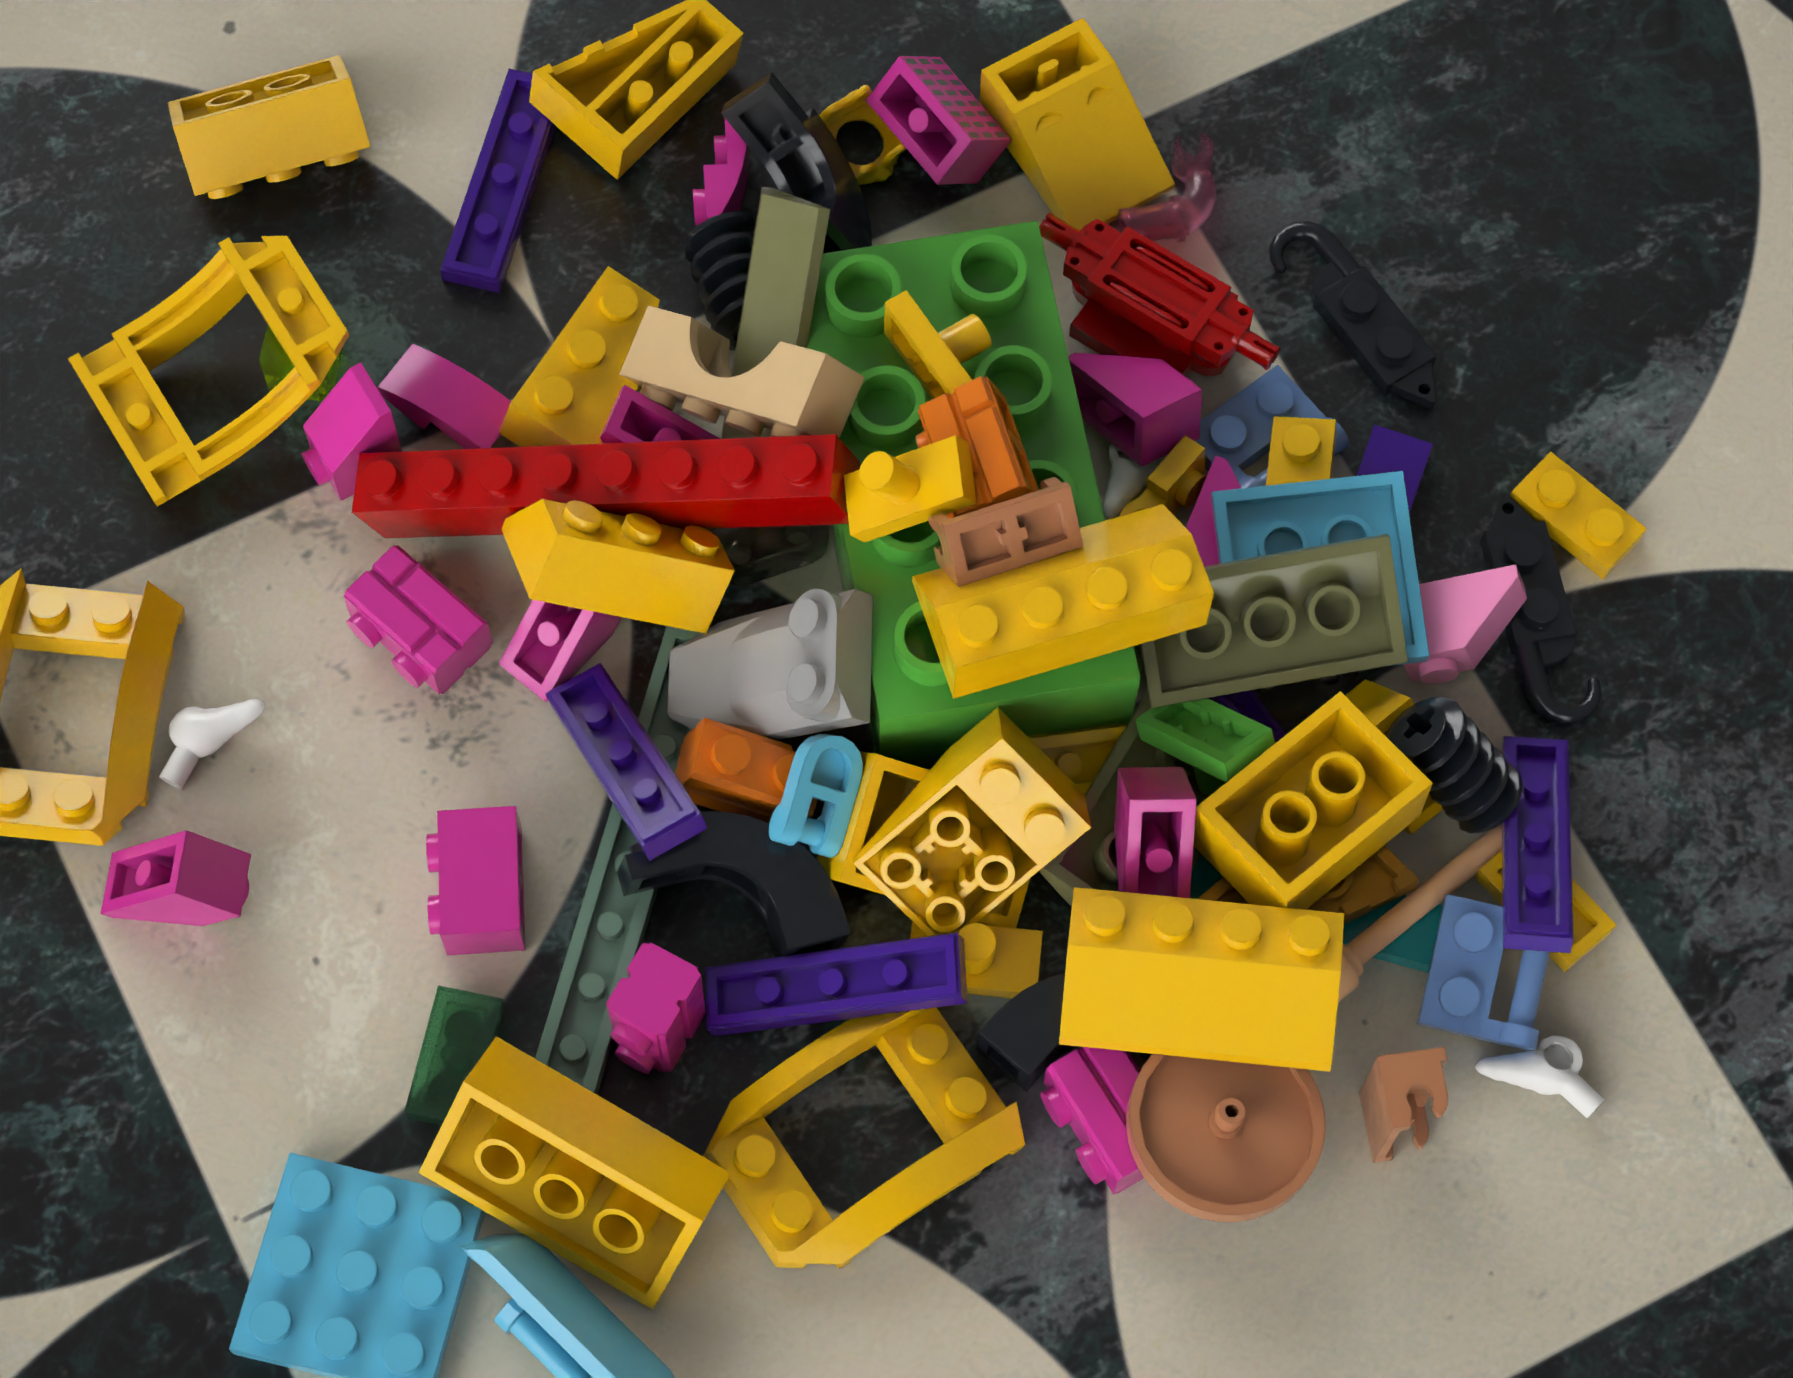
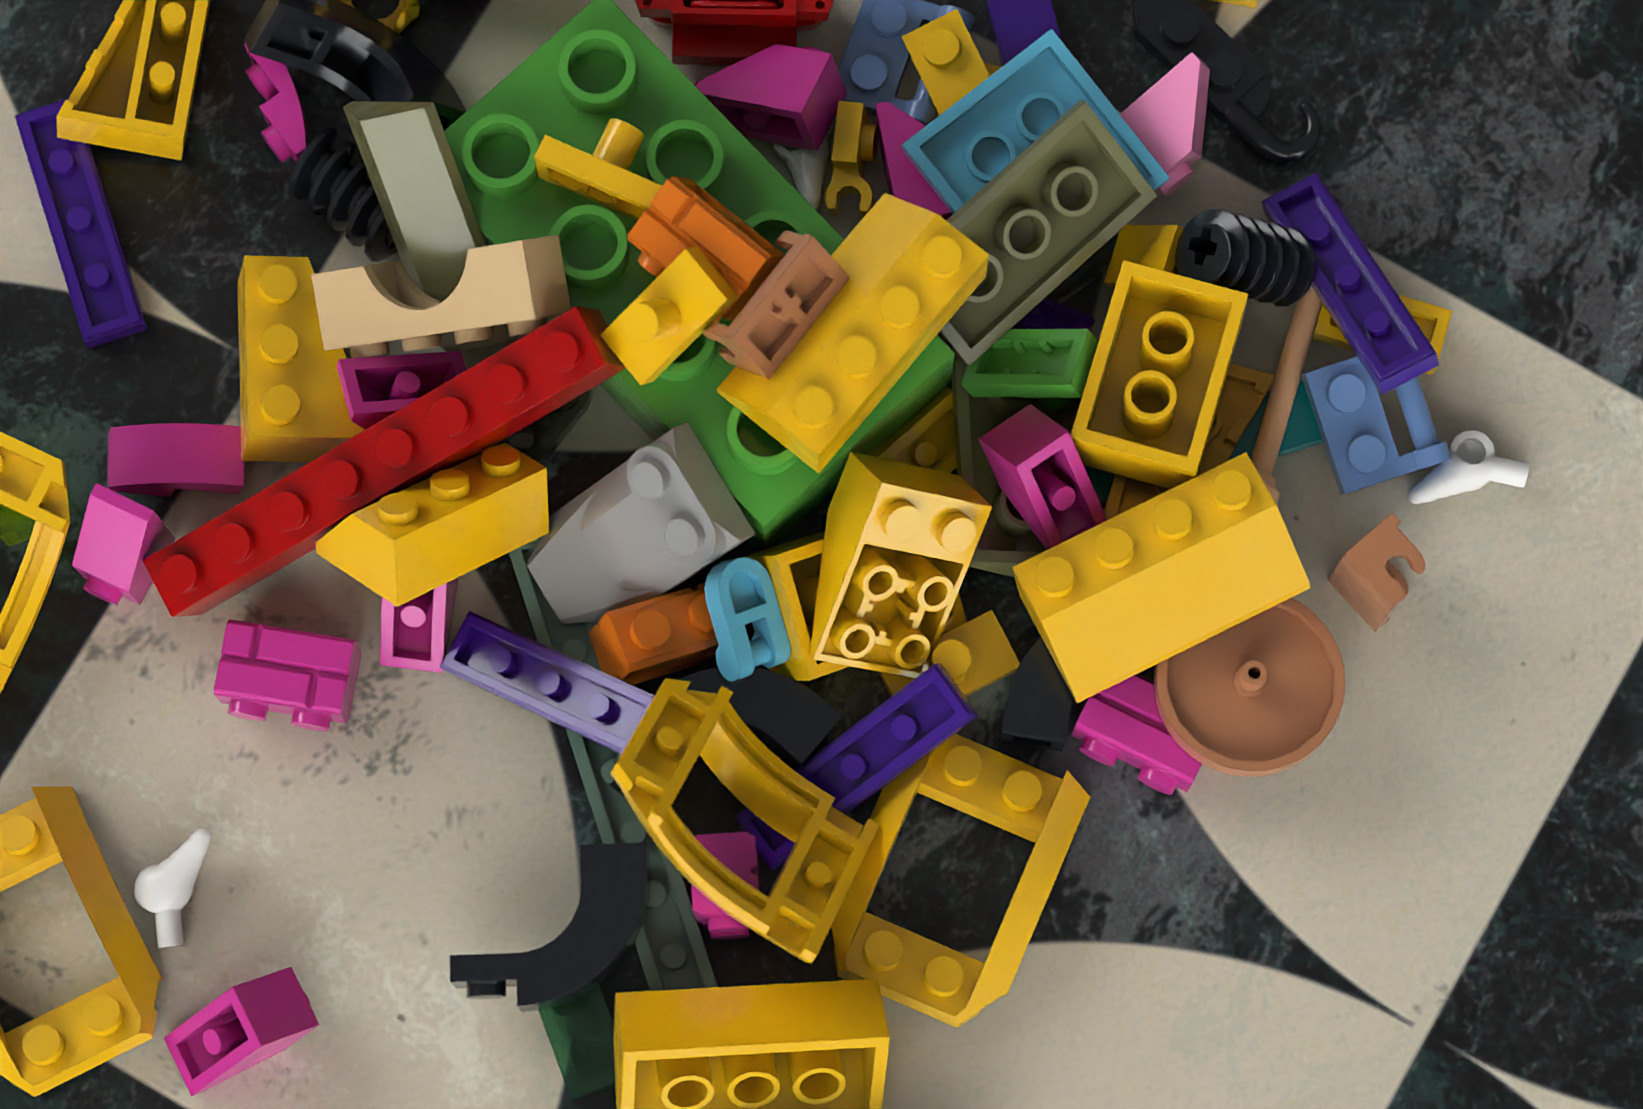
camera: 30 degrees left, 10 degrees up
(478, 880) = (497, 864): dark pink brick -> none
(498, 990) = (590, 947): none -> black arch
(762, 1025) = (827, 842): none -> yellow wedge

